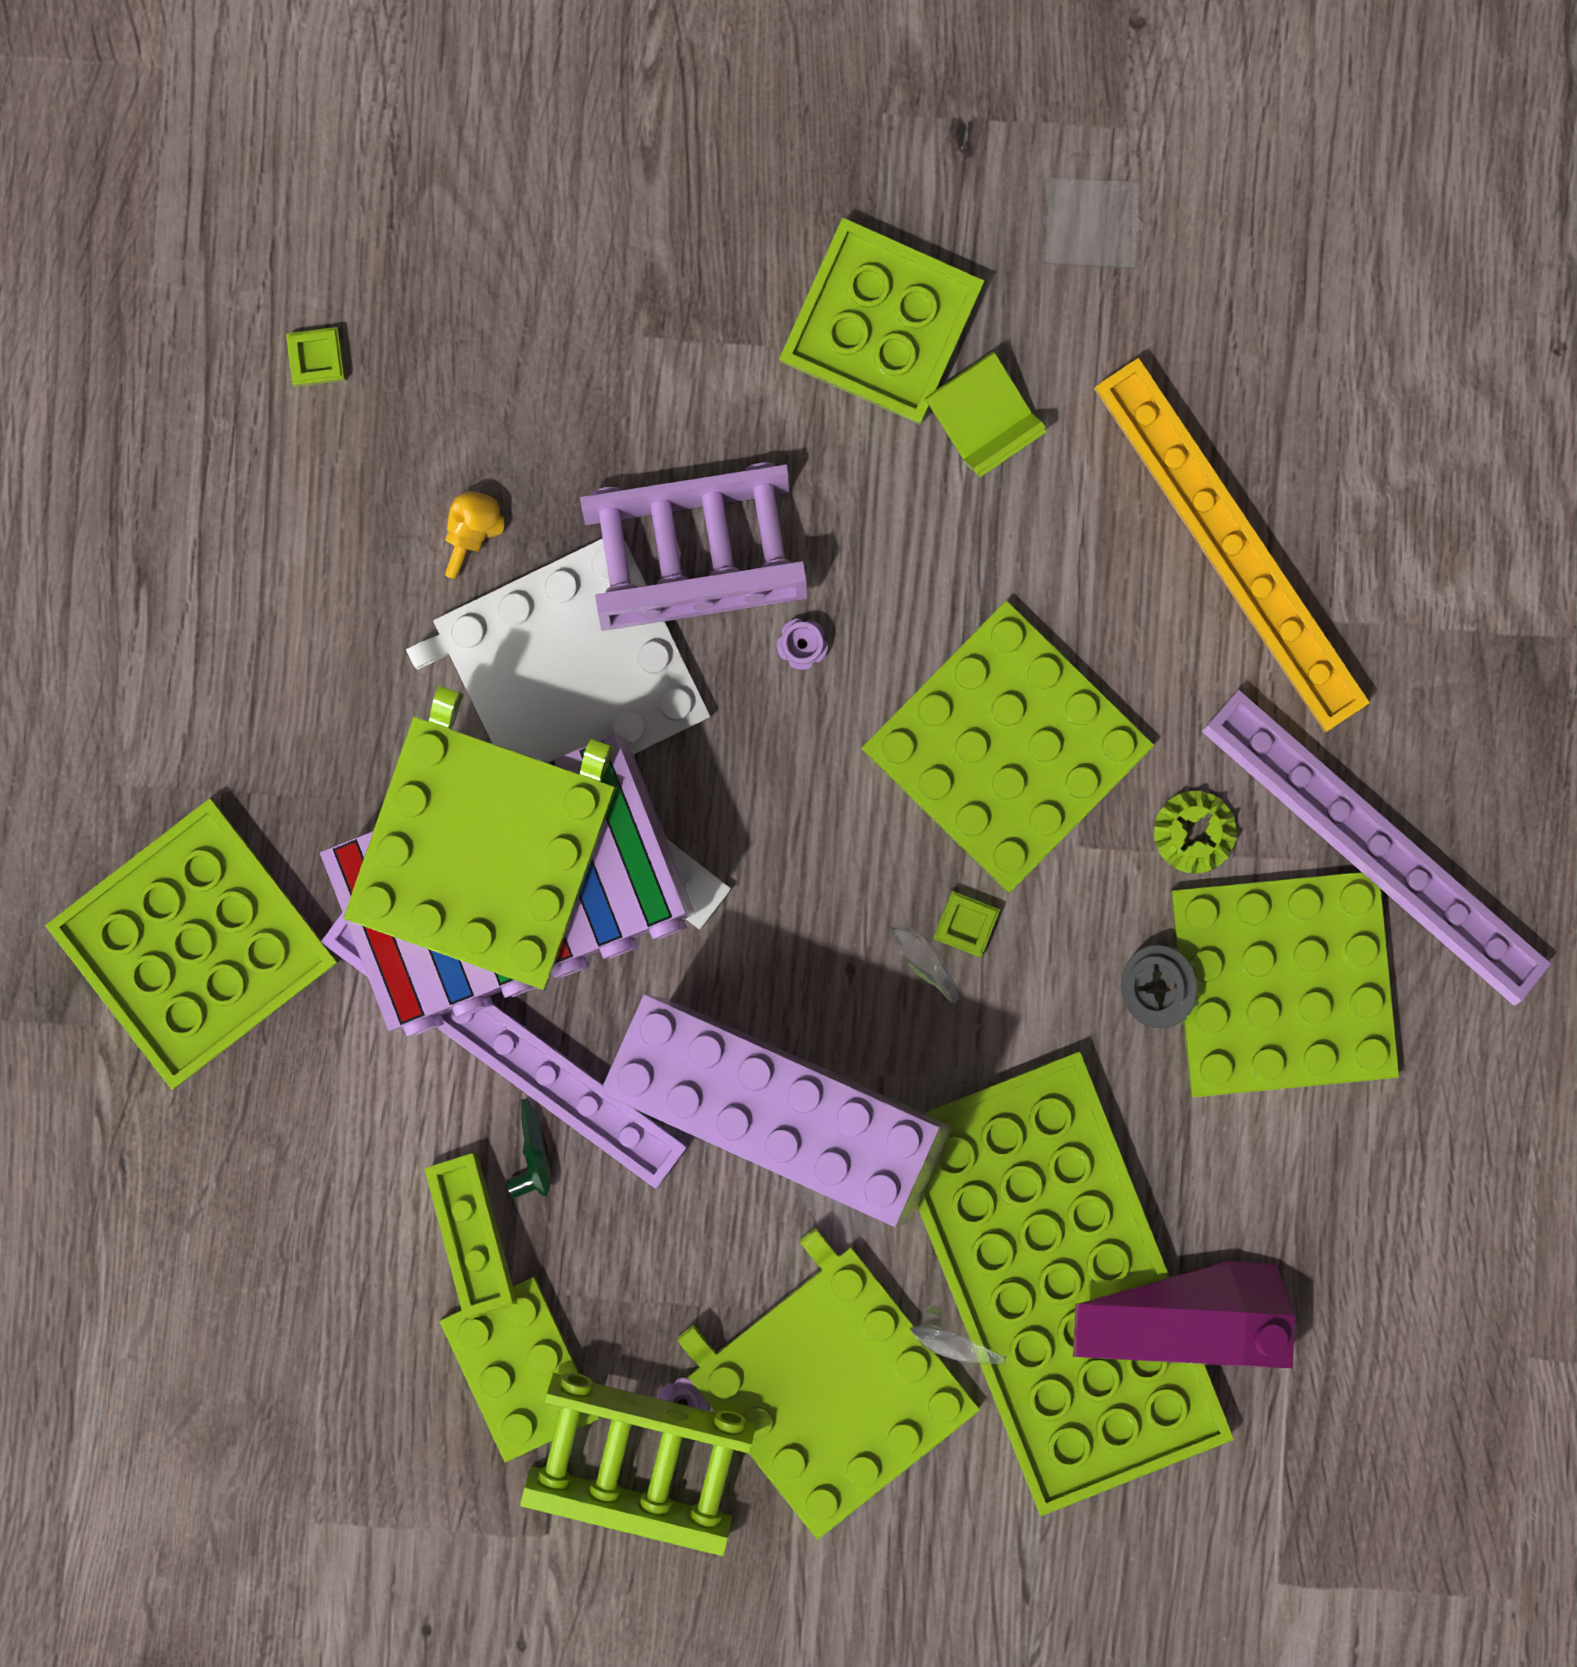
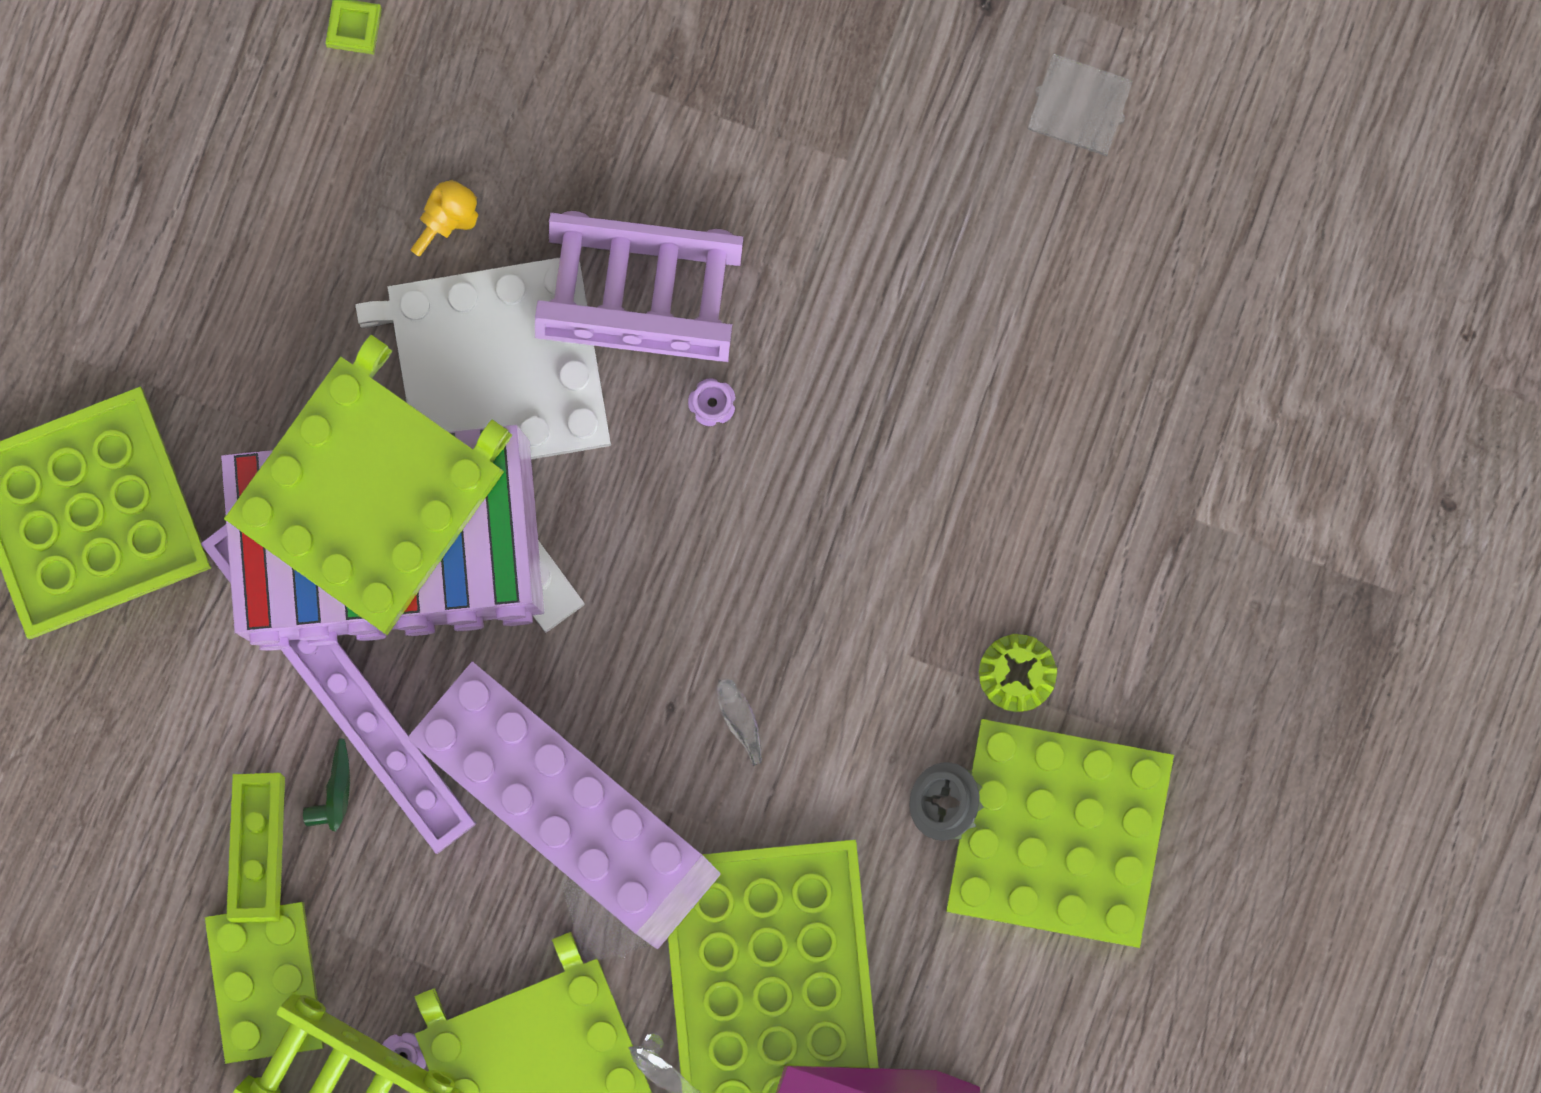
camera: 20 degrees right, 5 degrees down
(881, 320) = (866, 136): lime plate -> none
(966, 924) = (786, 696): lime tile -> none
(985, 415) = (934, 245): lime piece -> none
(1007, 747) = (870, 547): lime plate -> none
(1231, 545) = (1123, 425): yellow plate -> none
(1376, 848) = (1178, 733): lavender plate -> none

